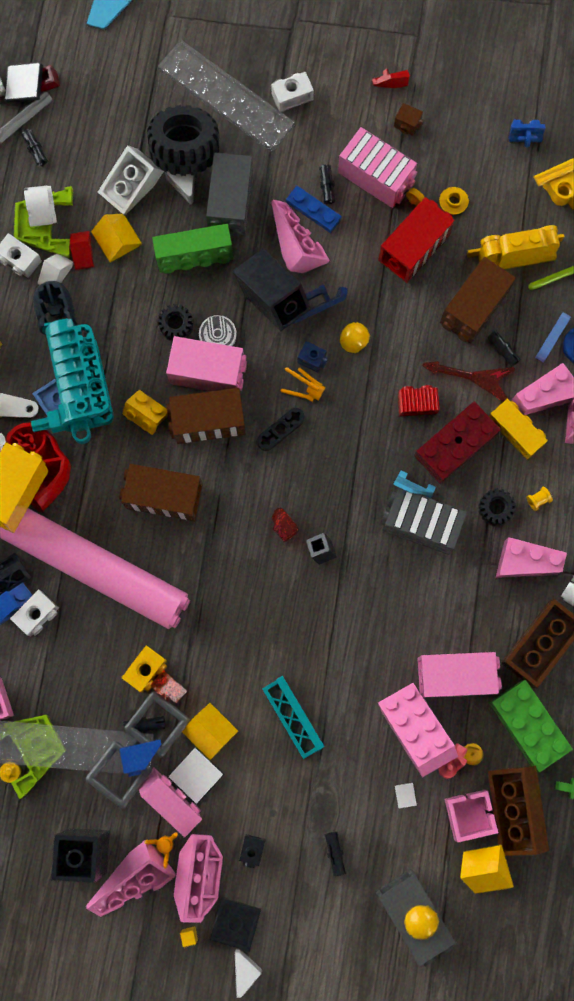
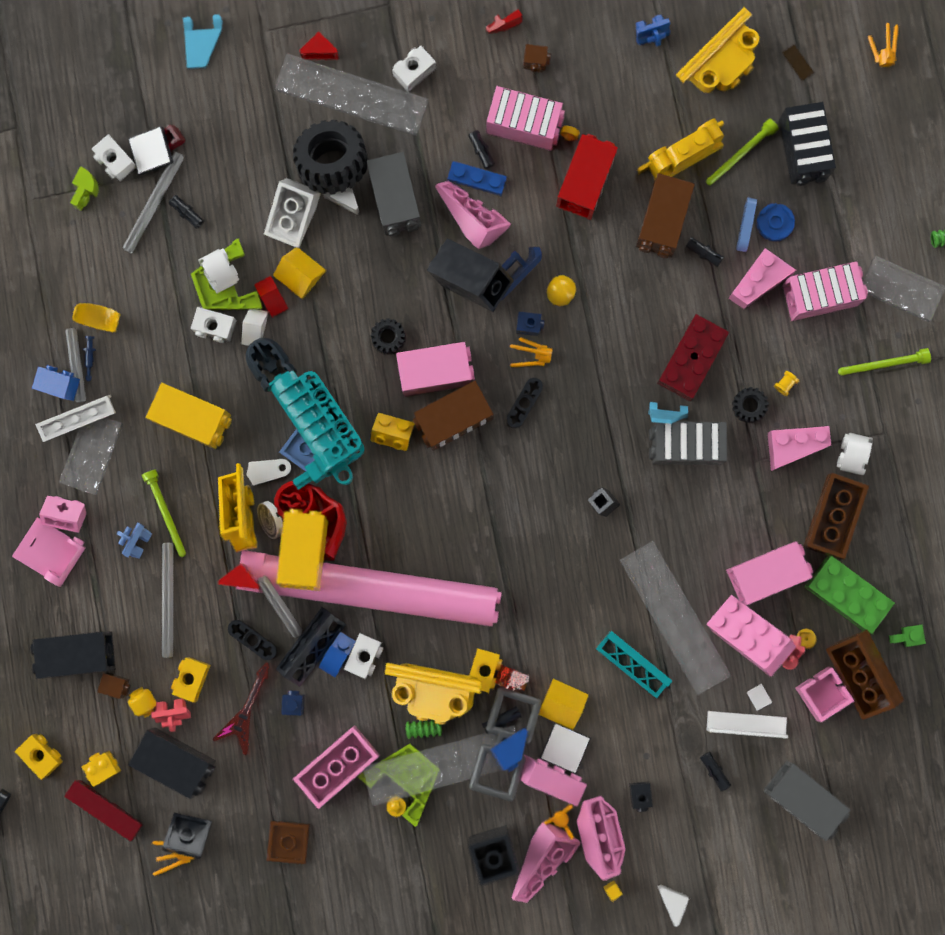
camera: 15 degrees left, 5 degrees up
(65, 705) = (423, 729): none -> bright green piece
(86, 671) = (432, 691): none -> yellow brick
(161, 492) = (437, 503): reddish brown brick -> none
(193, 248) = (379, 259): bright green brick -> none
(211, 45) = (319, 49): none -> red slope
(218, 330) = (431, 331): tile -> none
(235, 924) = (649, 865): black tile -> none
(284, 525) = (560, 492): clear red rock -> none
(350, 687) = (675, 618): none -> clear plate
(383, 818) = (746, 724): none -> white panel
(418, 401) = (642, 331): red brick -> none
(421, 922) = (814, 802): yellow hair -> none
(450, 207) = (605, 131): yellow piece -> none
(485, 379) = (697, 287): clear red piece -> none
(486, 869) = (853, 736): yellow slope -> none
(518, 428) = (744, 324): yellow brick -> none

